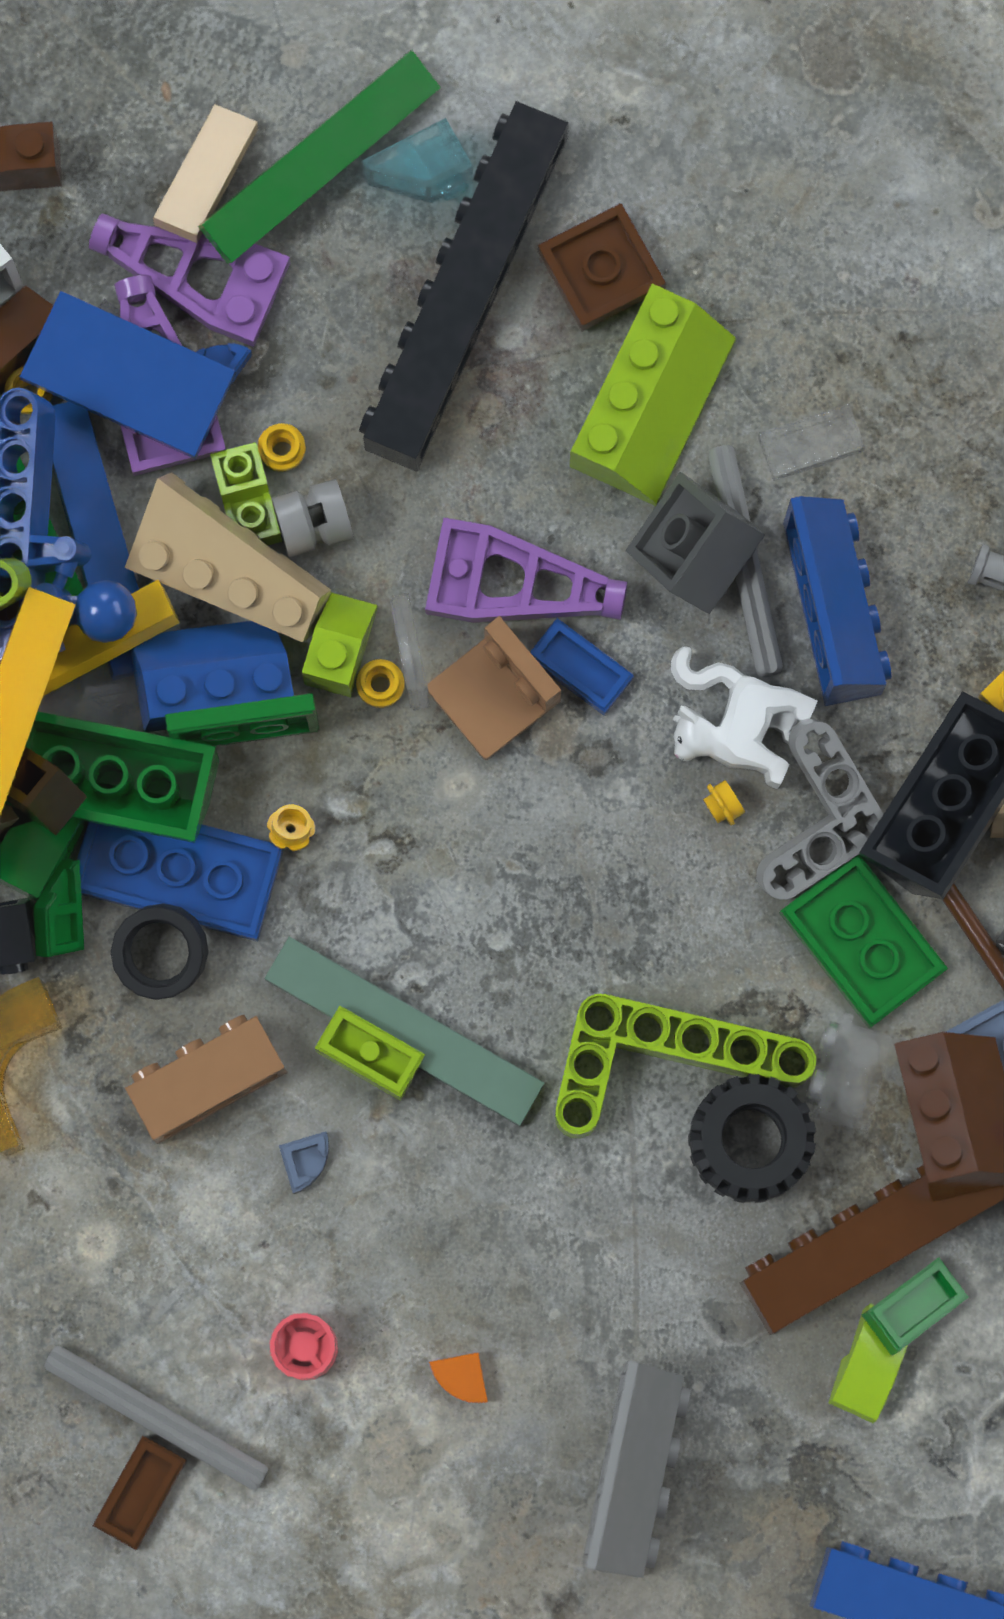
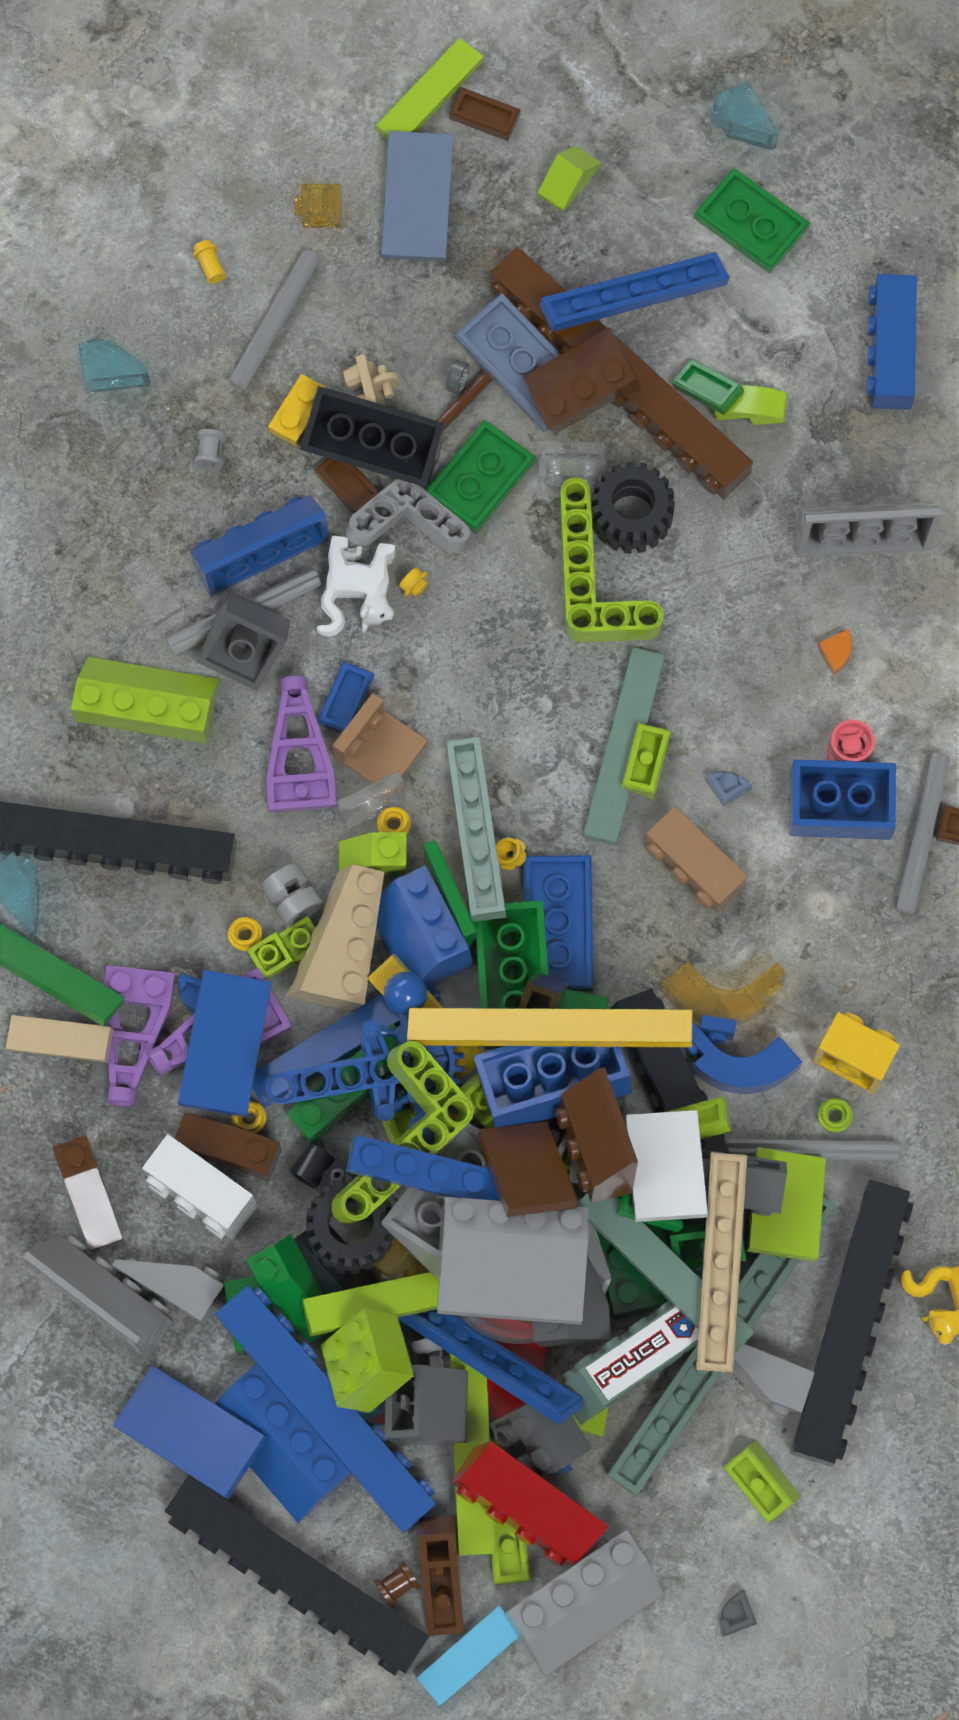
camera: 105 degrees left, 5 degrees down
(59, 912) = (612, 984): green tile -> none
(122, 955) = (602, 930): black tyre -> none
(228, 1309) = (842, 799): none -> blue brick
(327, 781) = (476, 829): none -> sand green plate
(600, 266) = (61, 754): reddish brown plate -> none
(895, 752) = (346, 483): none -> reddish brown tile

